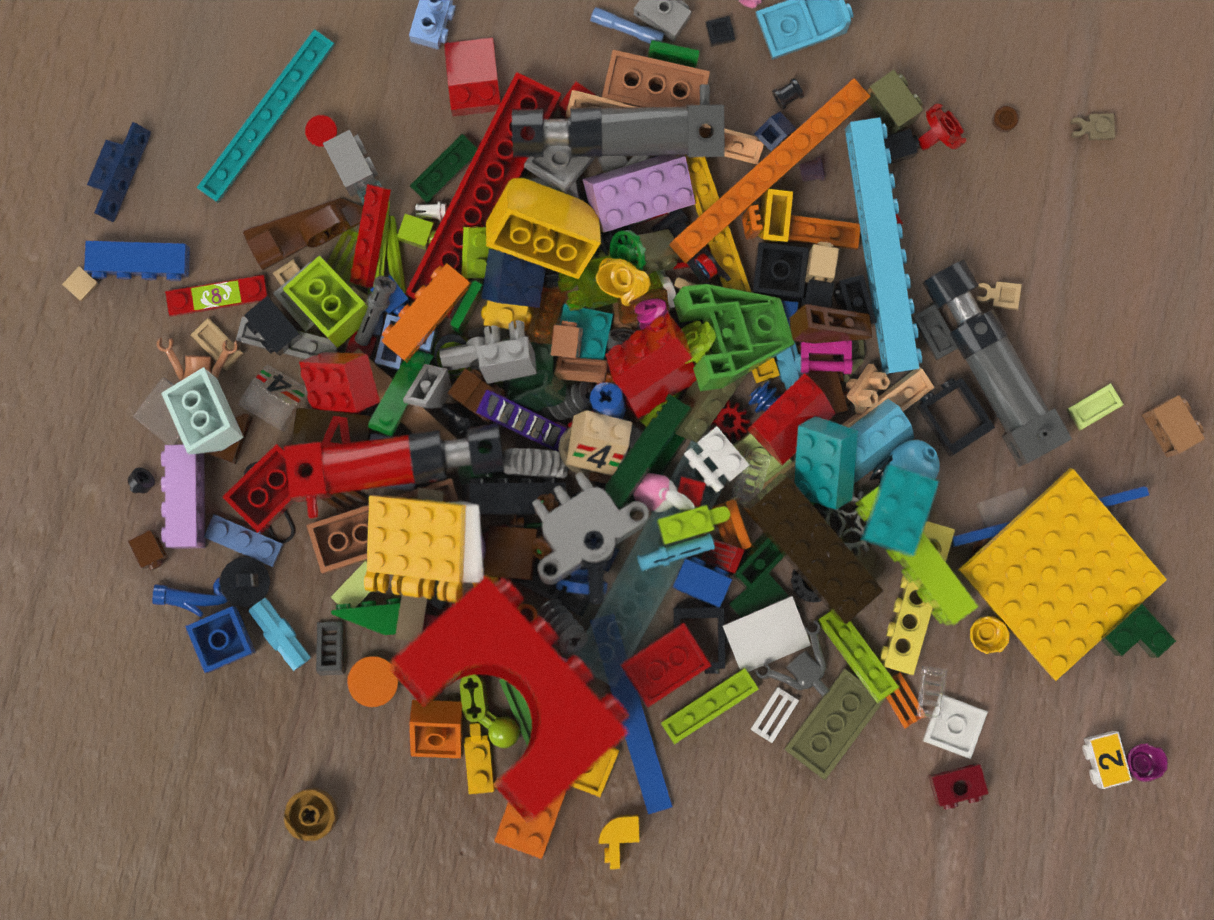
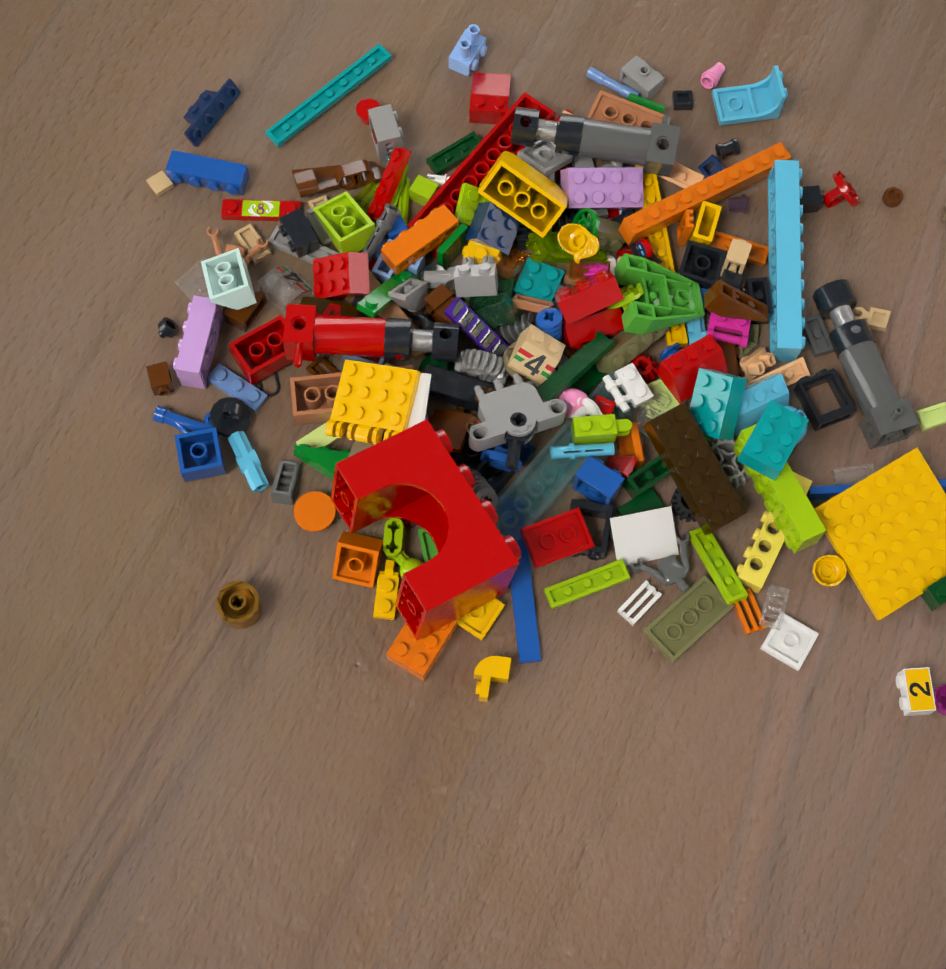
camera: 10 degrees right, 15 degrees down
(567, 340) = (525, 279): nougat brick -> none
(894, 102) = (812, 161): olive brick -> none
(943, 783) = (796, 681): dark red brick -> none

